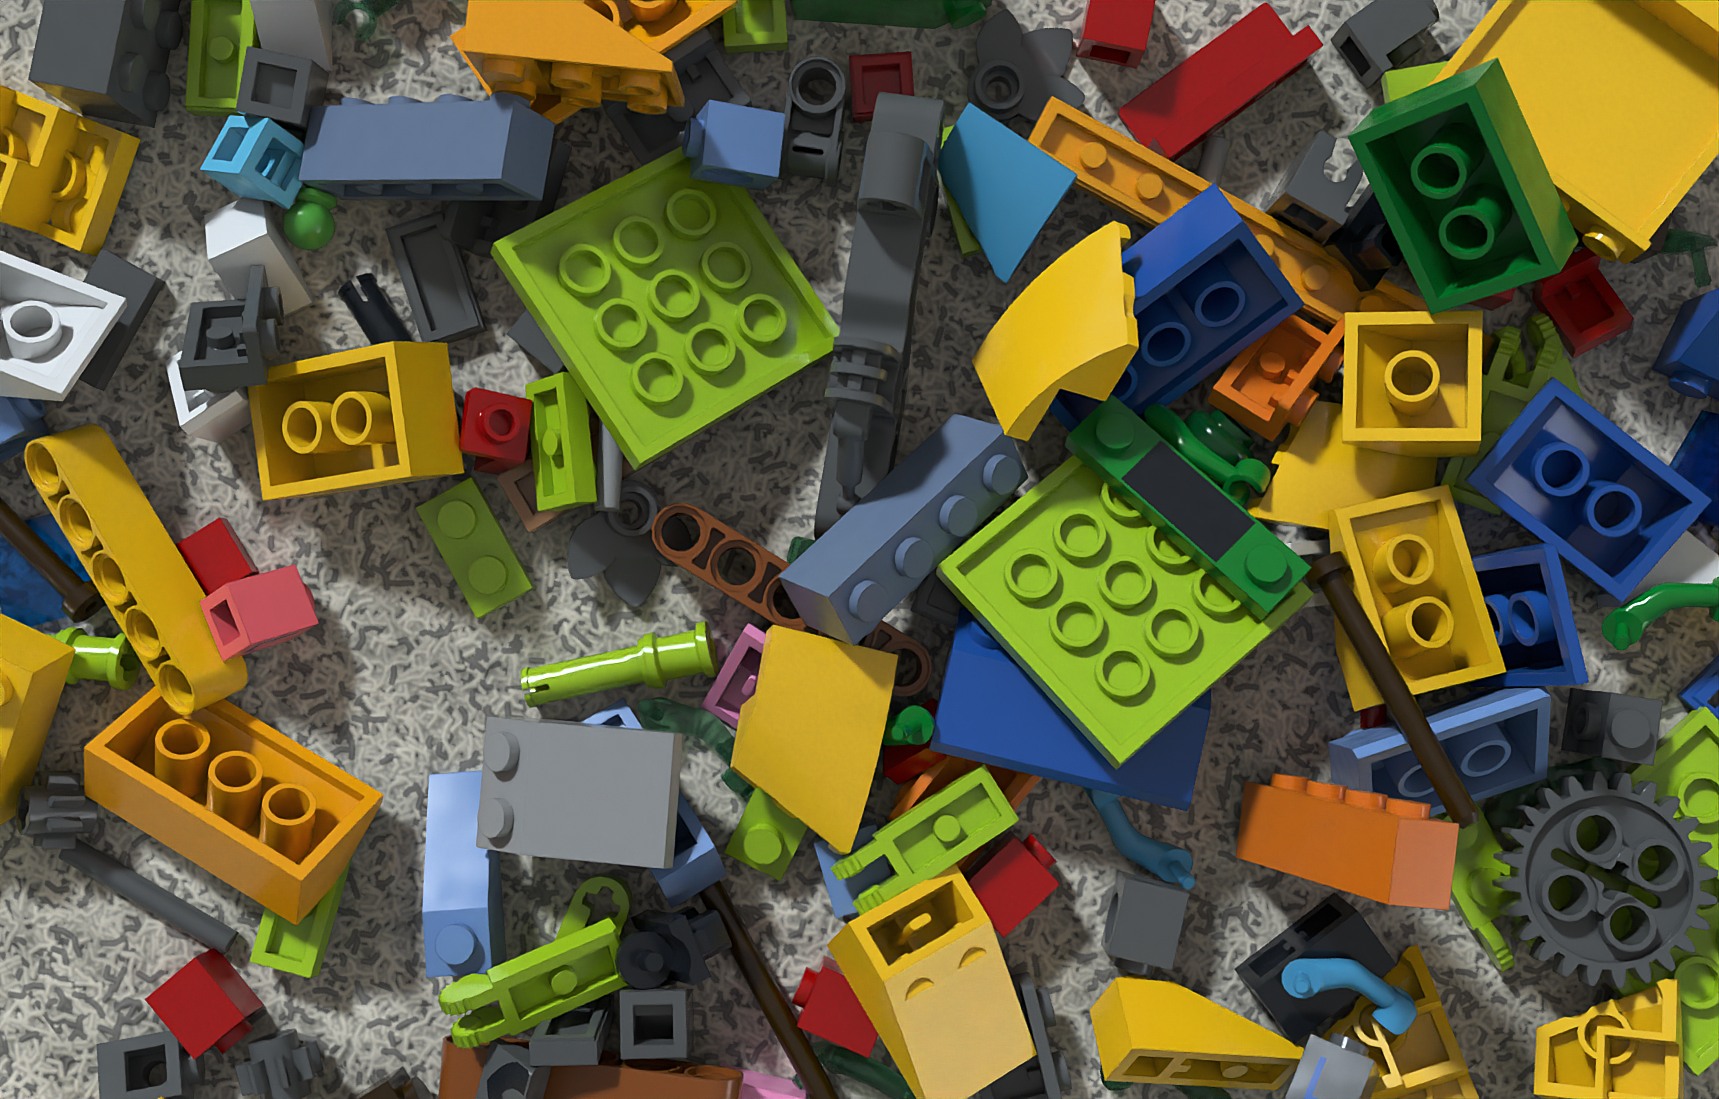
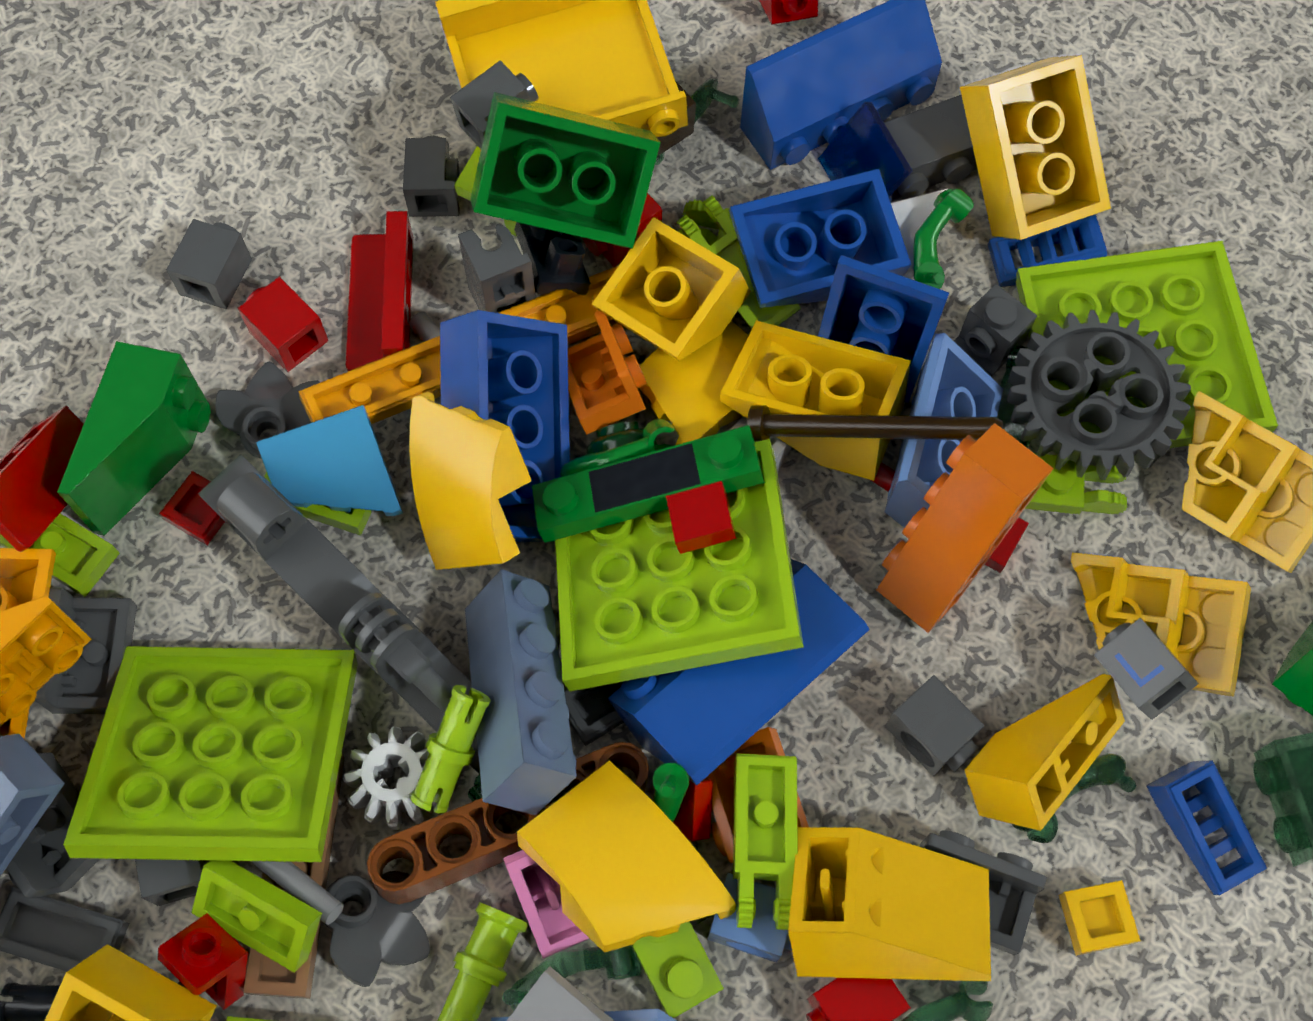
camera: 60 degrees left, 20 degrees down
(734, 145) = (150, 625): medium blue brick -> none
(764, 445) = (380, 764): none -> white gear
(808, 508) = (450, 749): none -> lime pin
(813, 132) = (189, 573): dark grey piece -> none
(1012, 880) = (840, 796): red brick -> none
(1158, 857) = (889, 691): dark azure piece -> none
(1182, 585) = (700, 517): none -> red tile
(1310, 976) = (1050, 626): dark azure piece -> none
(1325, 932) = (1045, 629): black hinge -> none
(1517, 45) = (475, 99): none -> dark grey brick
(1582, 304) = (692, 175): red bracket -> none

